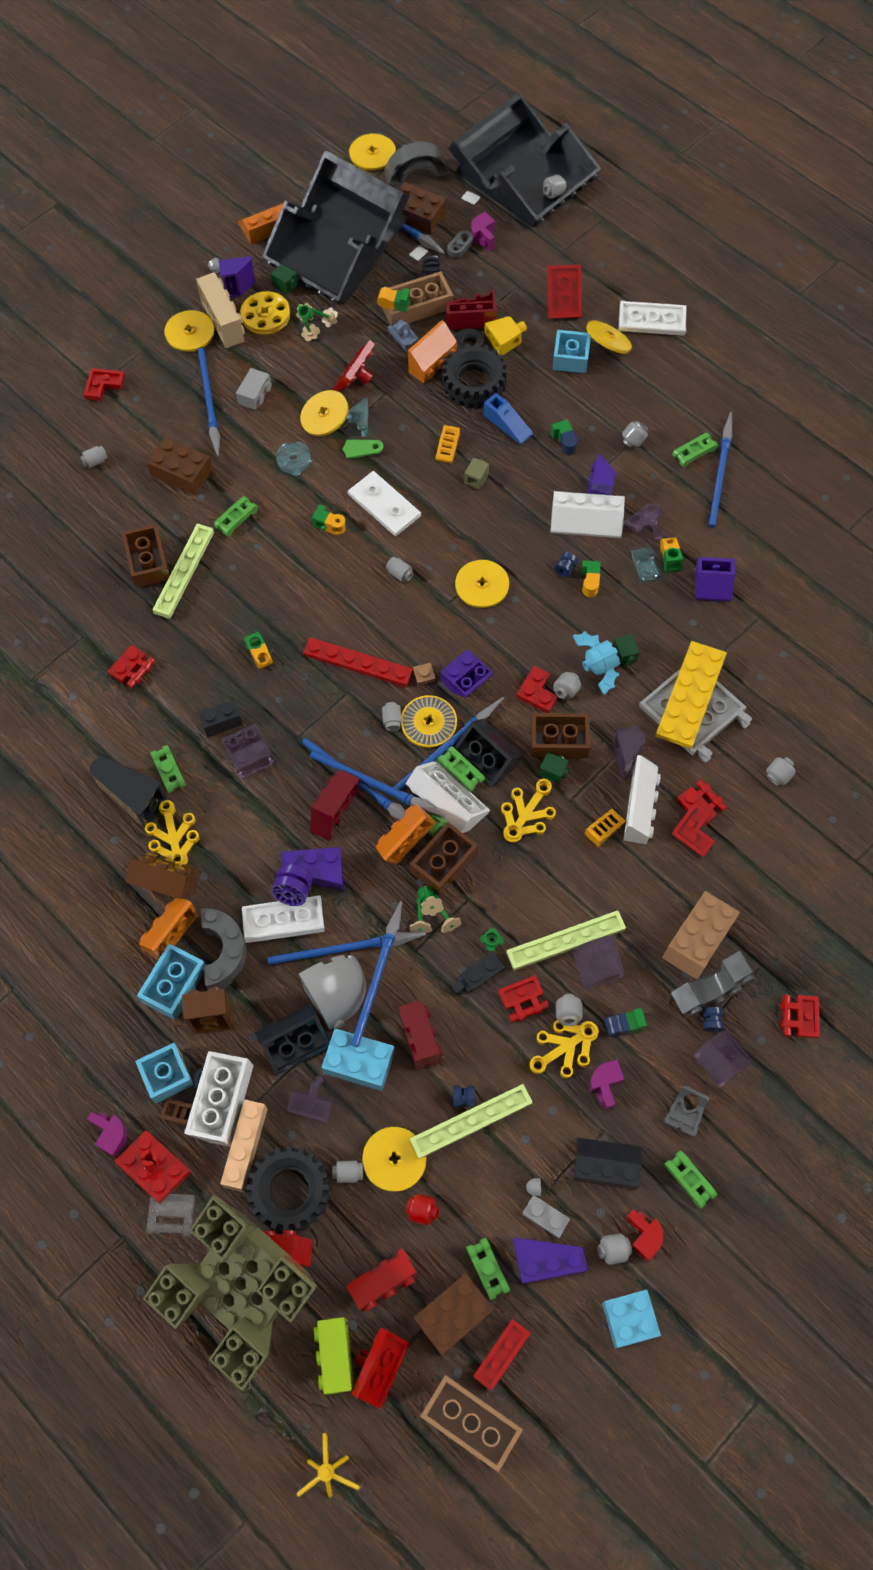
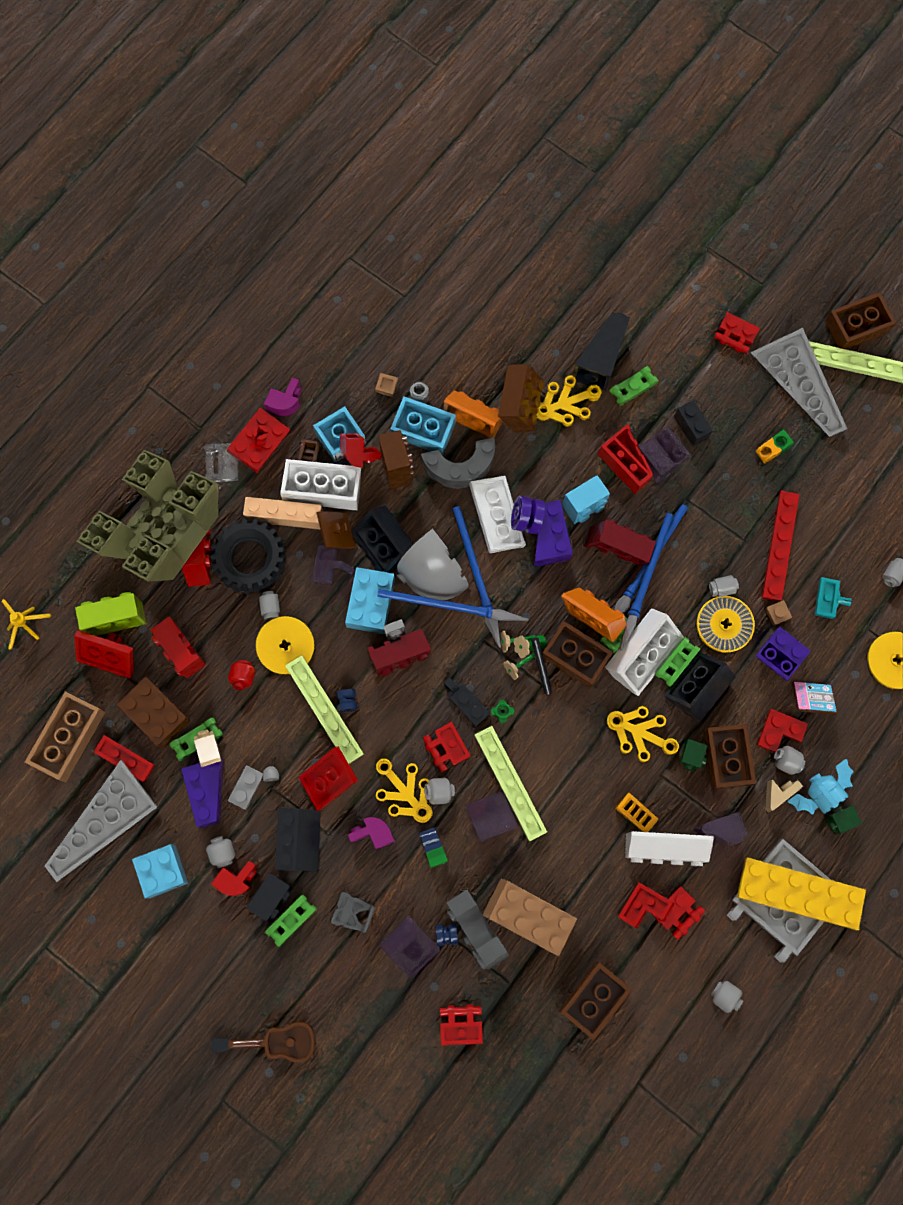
camera: 80 degrees right, 10 degrees up
(115, 1017) = (386, 384): none -> medium nougat plate
(133, 981) = (419, 392): none -> light grey brick
(184, 617) = (799, 373): none -> light grey wing
(190, 1052) = (354, 451): none -> red brick
(249, 784) = (626, 460): none -> red wedge
(274, 1088) = (335, 530): none -> reddish brown piece
(285, 826) = (585, 500): none -> medium azure brick
(397, 1035) = (394, 630): none -> light grey plate
(416, 628) = (829, 598): none -> teal plate
(451, 893) = (541, 665): none -> black bar
(453, 740) = (739, 675): blue piece -> none
(504, 1249) = (207, 748): none -> slope
(510, 655) = (814, 698): none -> piece
(548, 1120) = (328, 778): none -> red plate
(563, 1375) = (110, 813): none -> light grey wing
(599, 700) = (776, 797): none -> tan slope
(665, 1198) = (269, 897): none -> black brick
(781, 886) = (595, 1000): none -> reddish brown brick
(813, 1189) = (290, 1042): none -> reddish brown piece

